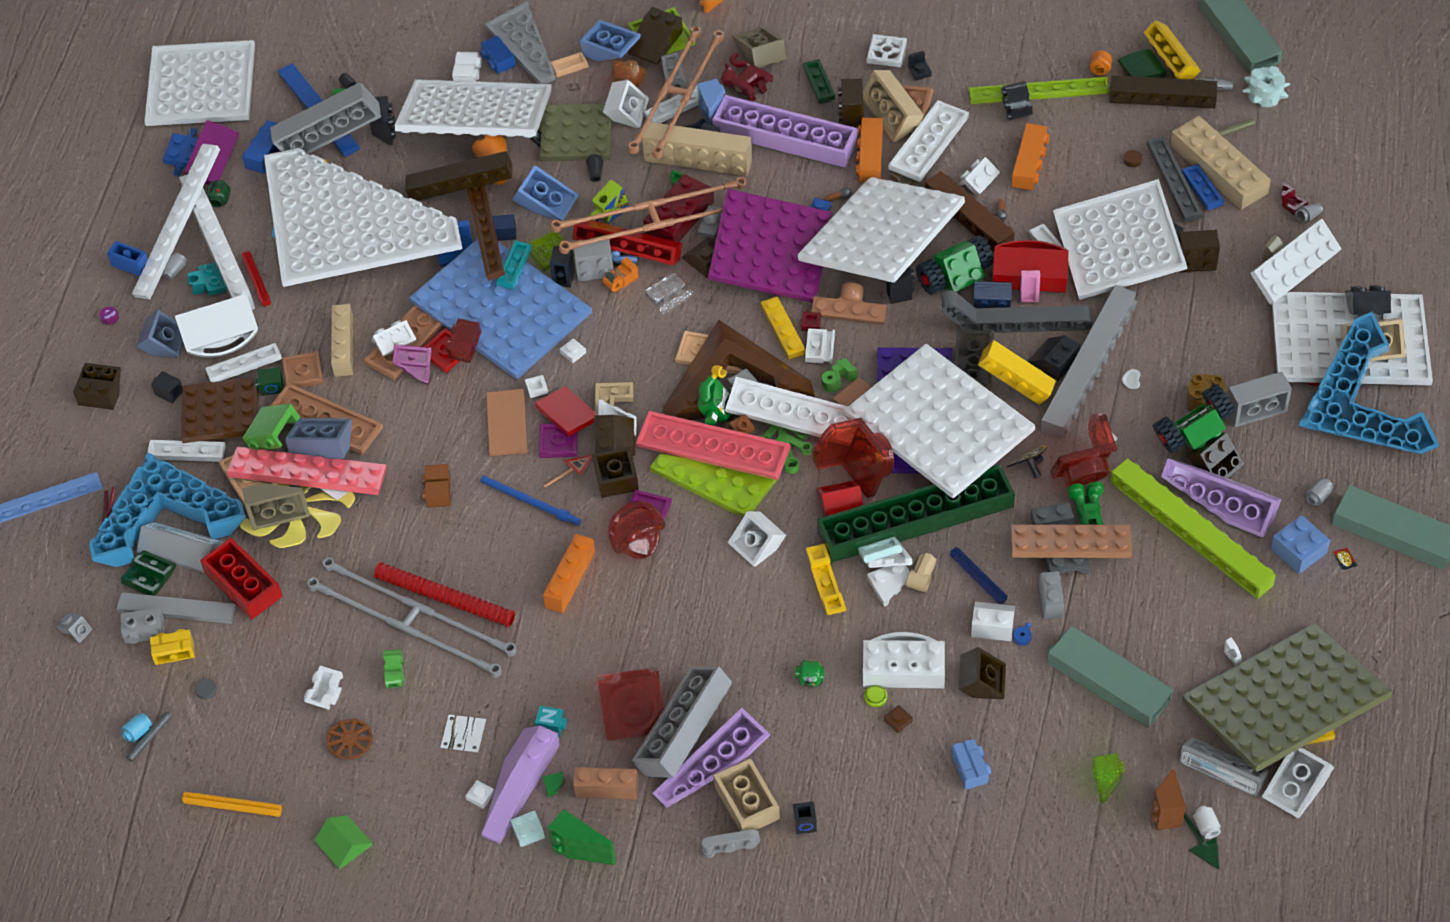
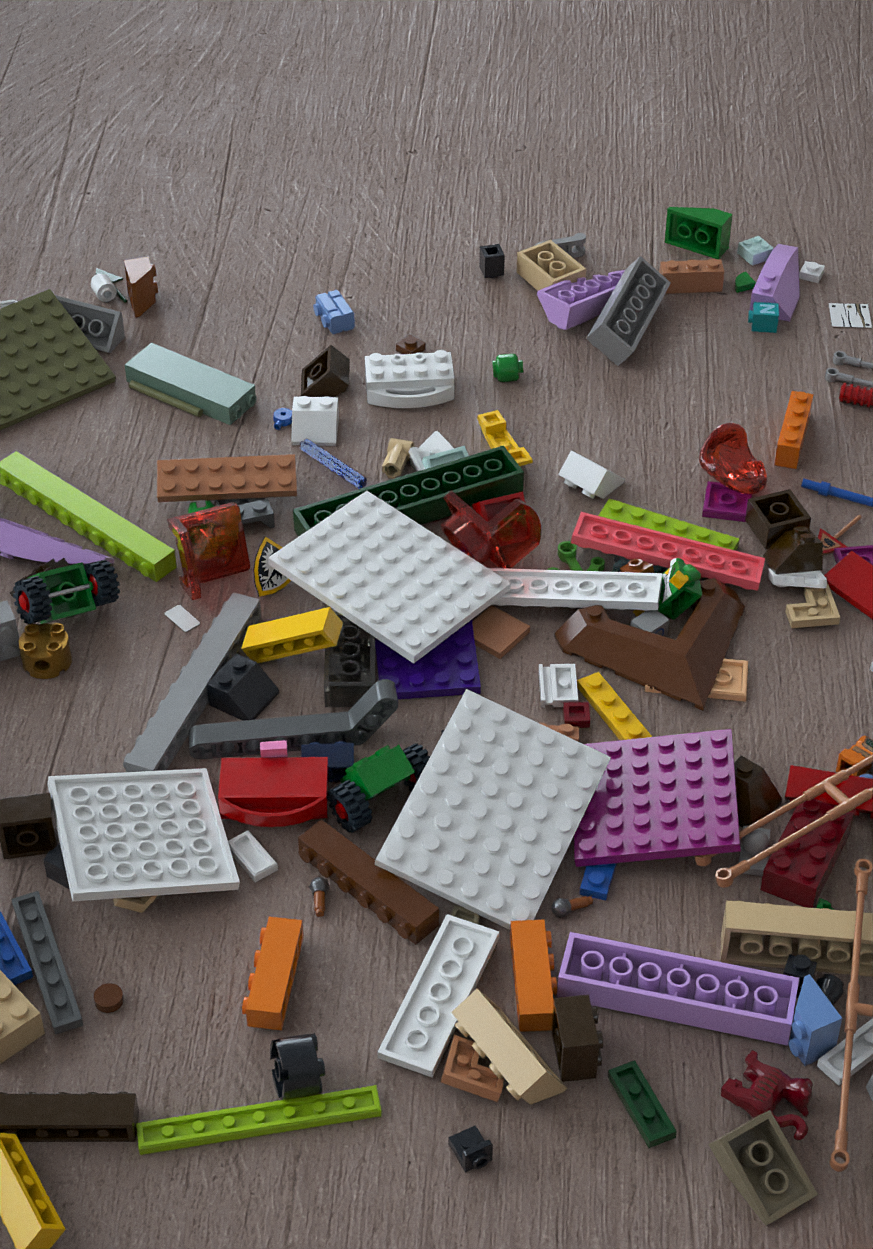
camera: 170 degrees right, 10 degrees down
(630, 702) = (691, 330): clear red piece -> none
(667, 288) = (789, 745): clear plate -> none
(831, 379) = (534, 646): bright green leg -> none
(888, 41) = (513, 1138): white piece -> none
(980, 176) = (357, 945): white bracket -> none
(1051, 595) = (250, 437): light grey brick -> none
(1100, 63) = (148, 1167): orange piece -> none
(1107, 774) = (197, 313): clear neon green slope -> none
(1131, 379) = (140, 672): white piece -> none
(1142, 64) = (74, 1174): dark green slope -> none
(1232, 651) = (56, 413): white tile -> none

